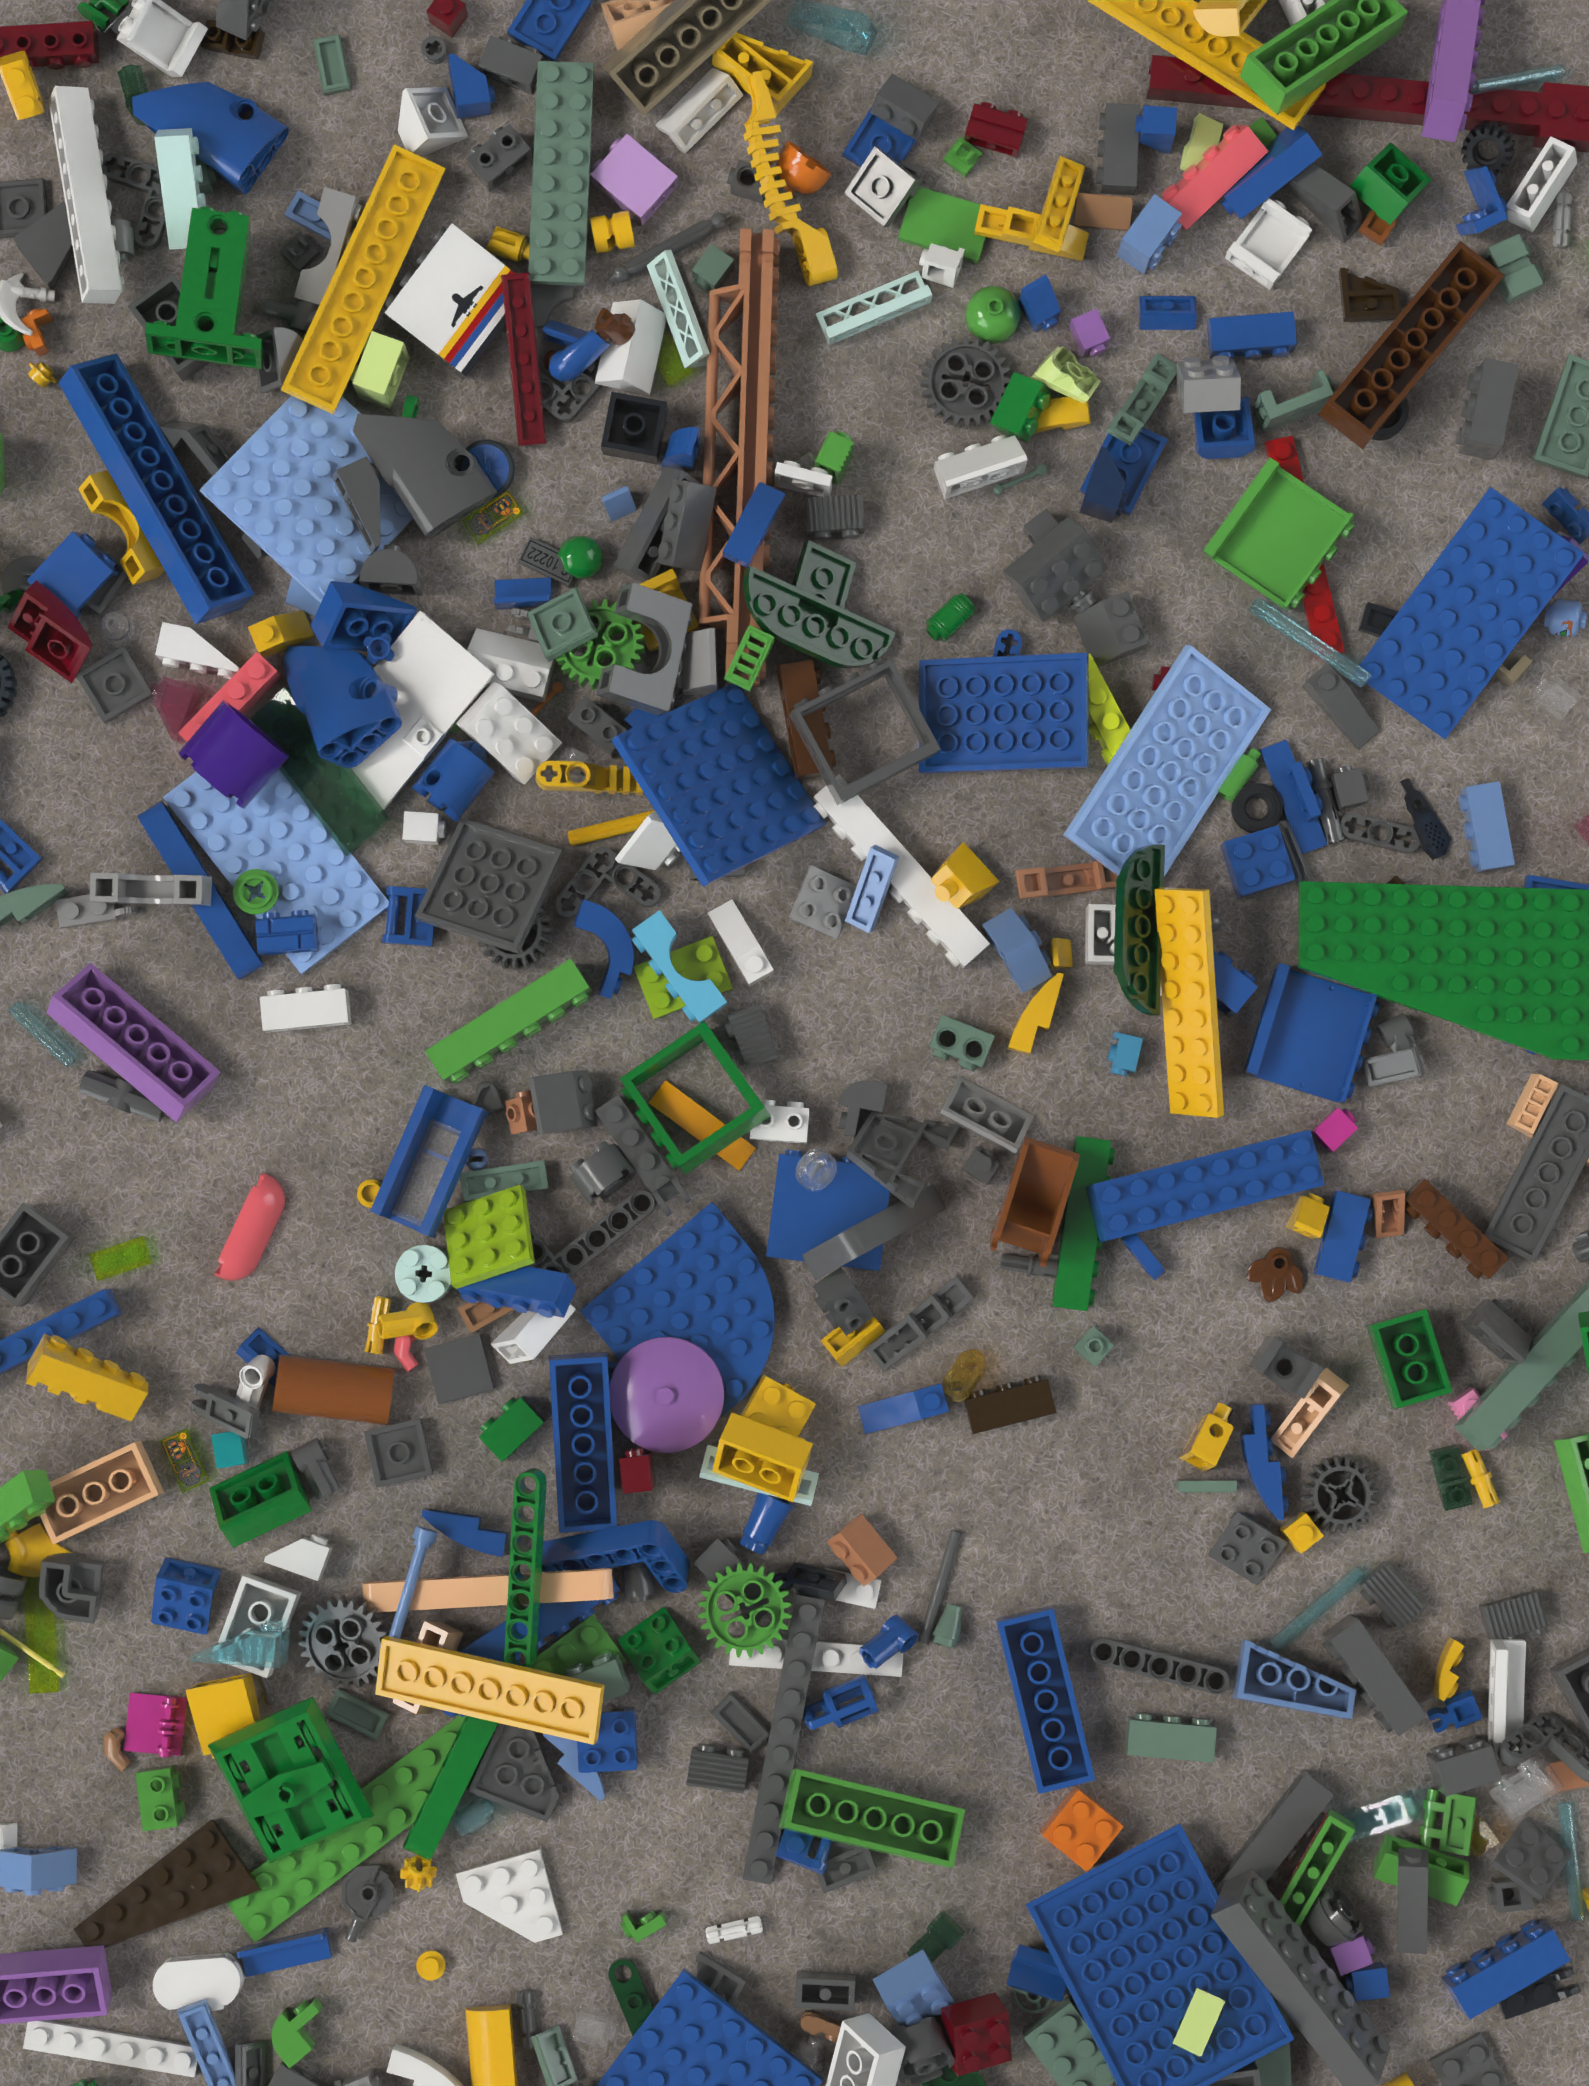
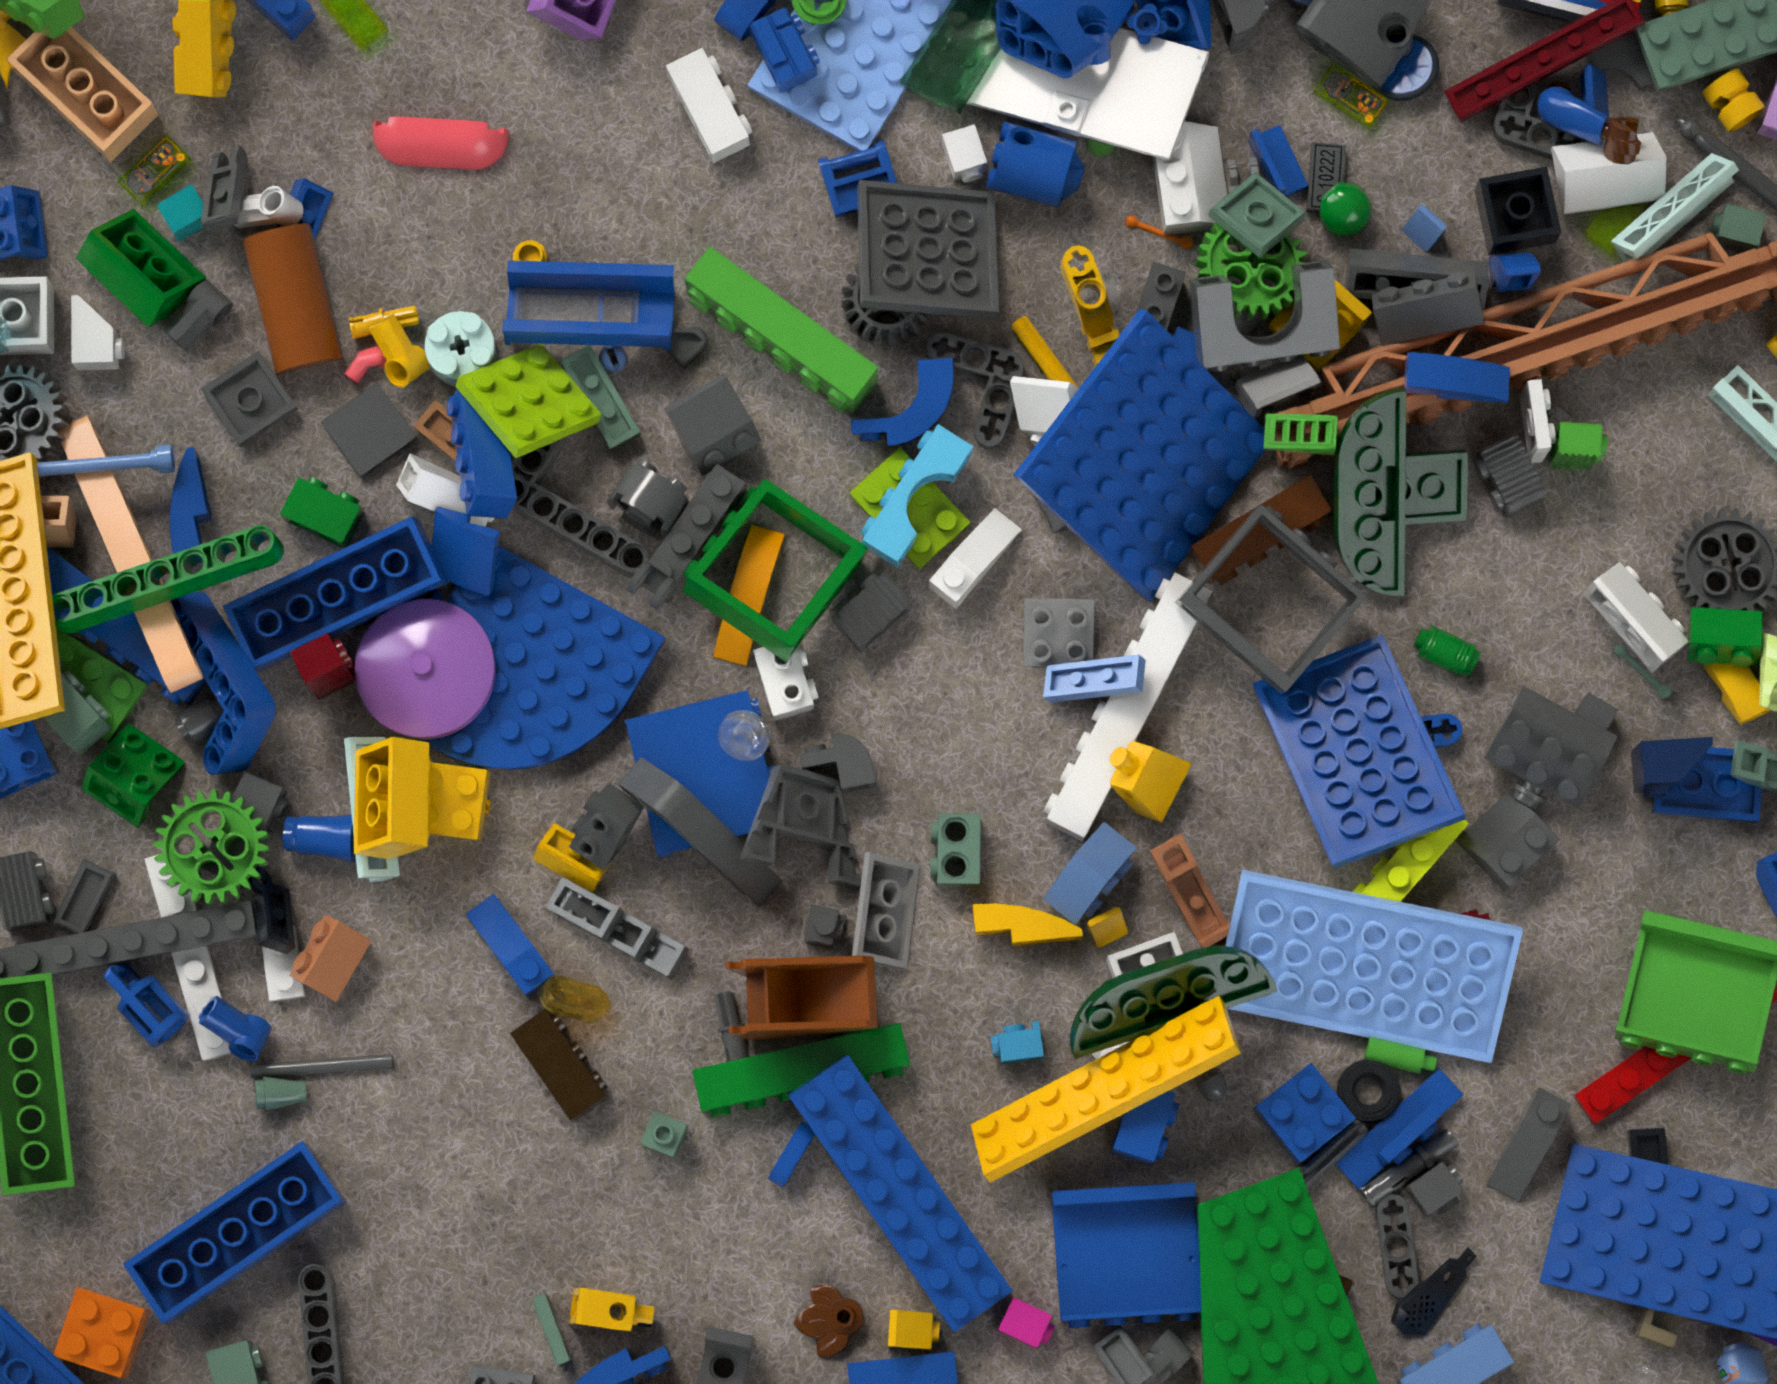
camera: 70 degrees right, 5 degrees down
(509, 732) = (1109, 203): white brick -> none
(521, 1113) = (681, 382): nougat brick -> none
(588, 1329) = (465, 550): none -> blue slope
(1309, 642) = (1587, 1077): clear light blue axle -> none

